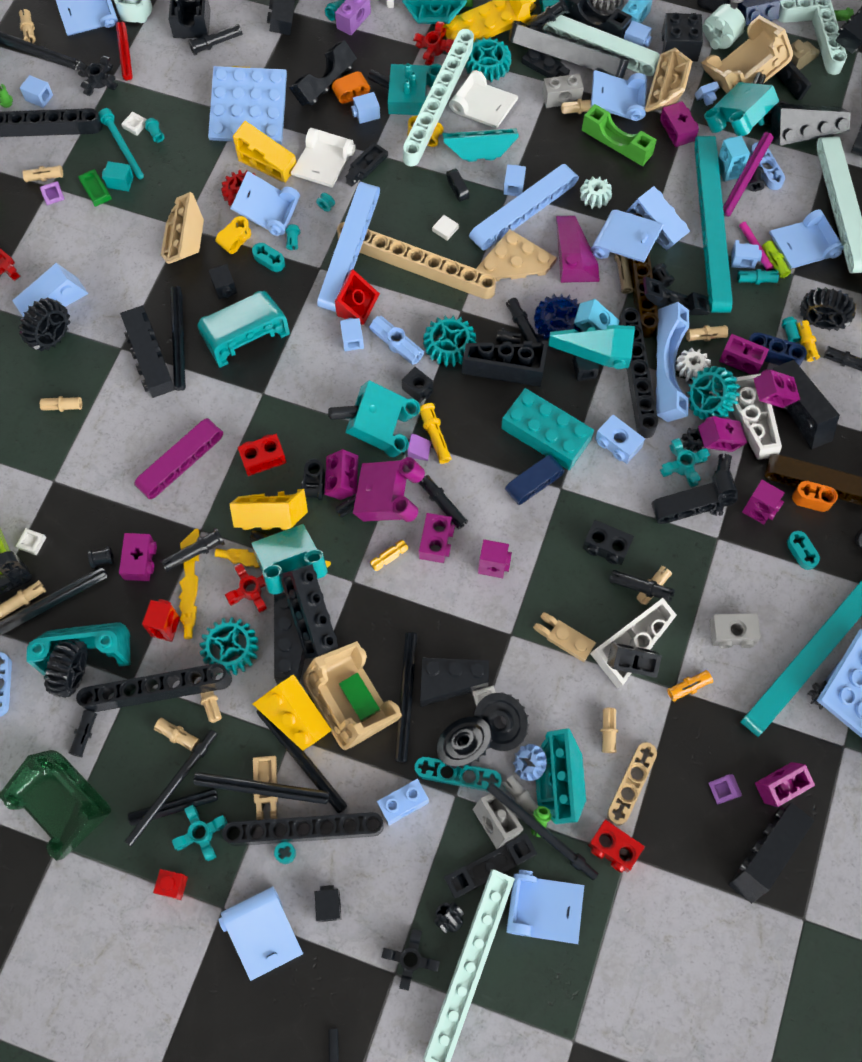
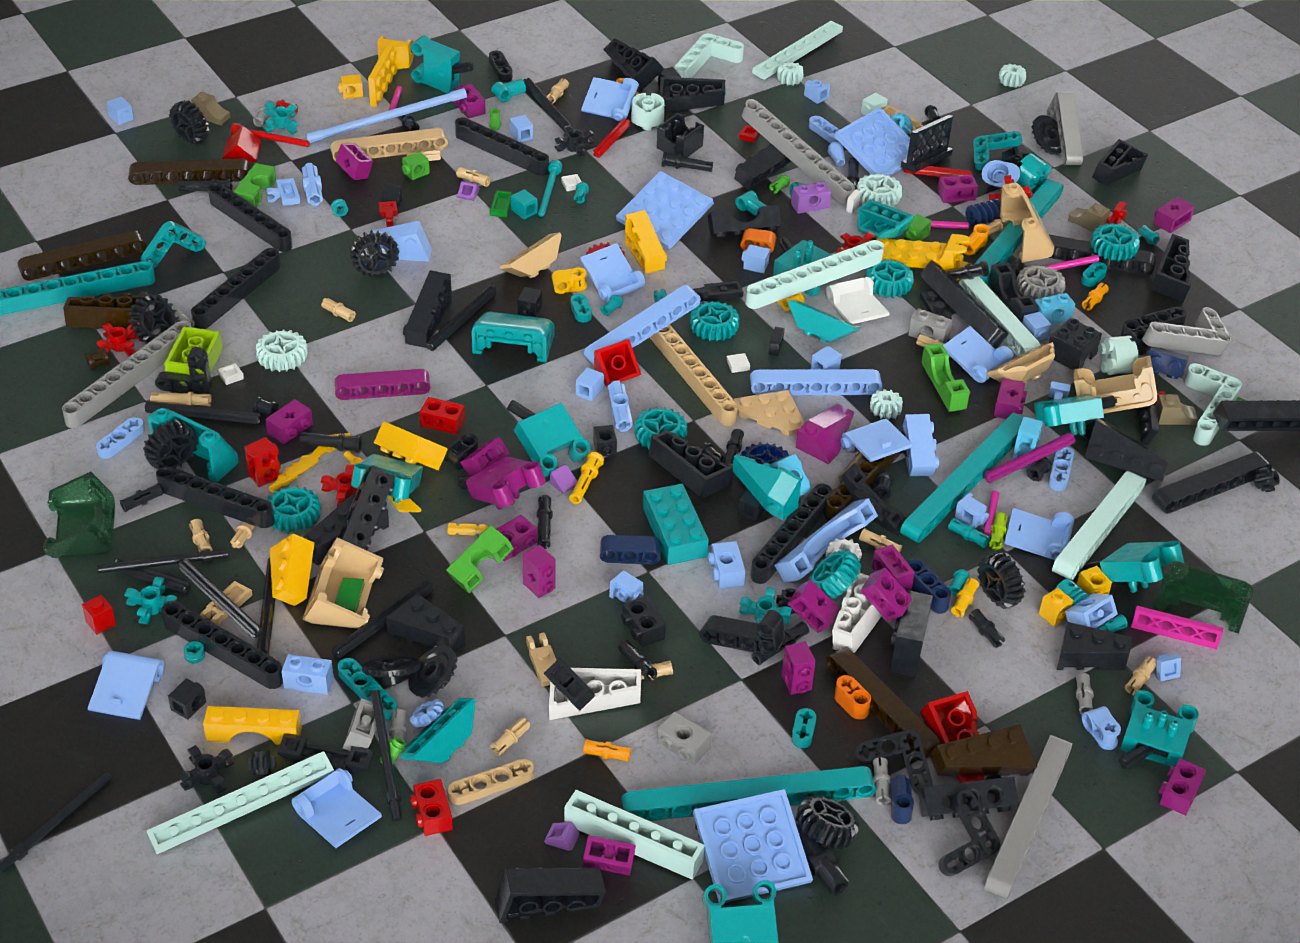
camera: 35 degrees right, 25 degrees down
(53, 496) = (281, 350): none -> light aqua gear
(307, 50) = (749, 201): none -> teal piece
(312, 12) = (781, 182): none -> bright green pin
(323, 157) = (693, 270): white door -> none
(394, 204) = (714, 321): none -> teal gear
(407, 887) = (225, 722): none -> yellow arch
(431, 601) = (488, 545): none -> bright green arch
(568, 520) = (626, 587): none -> light blue brick
(784, 749) = (651, 840): none -> light aqua brick

